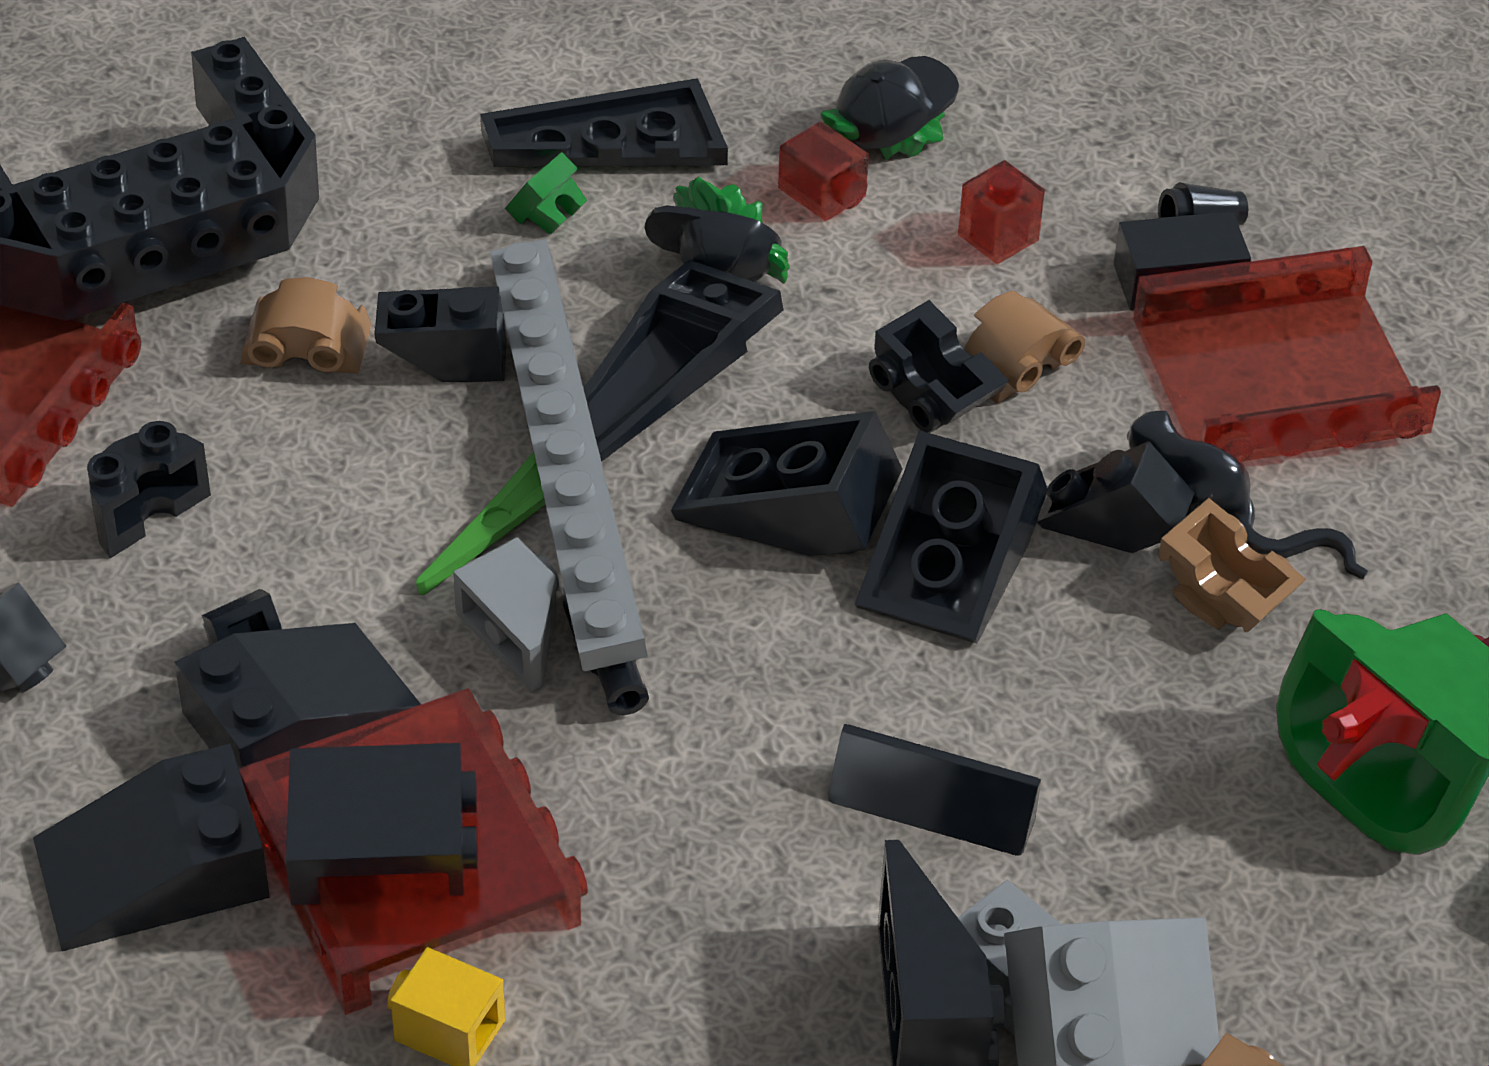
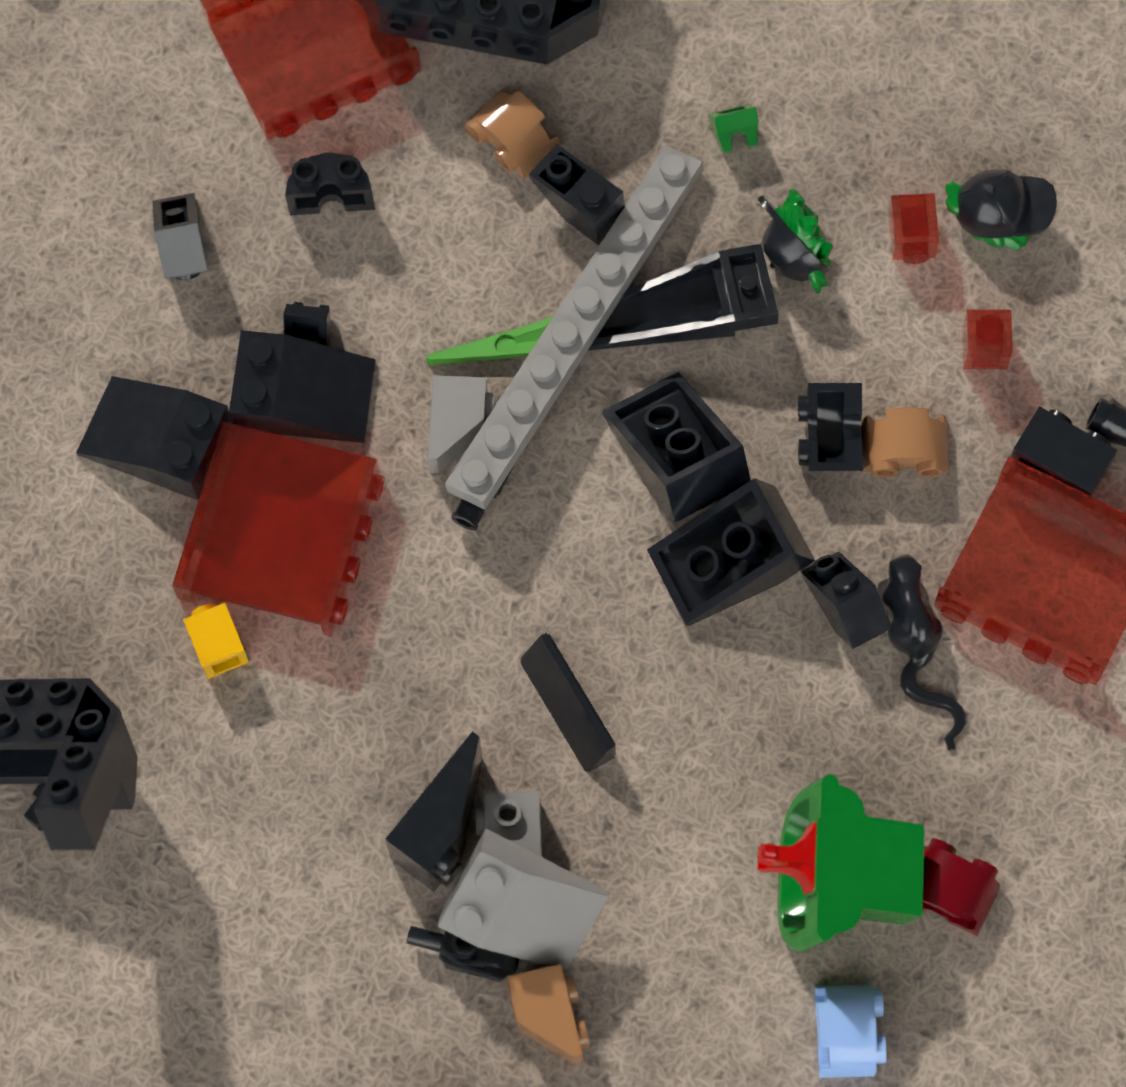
camera: 45 degrees right, 25 degrees up
(378, 815) = (251, 515): black panel -> none
(620, 128) = (825, 101): black wing -> none
(1221, 573) = (859, 692): medium nougat cylinder -> none

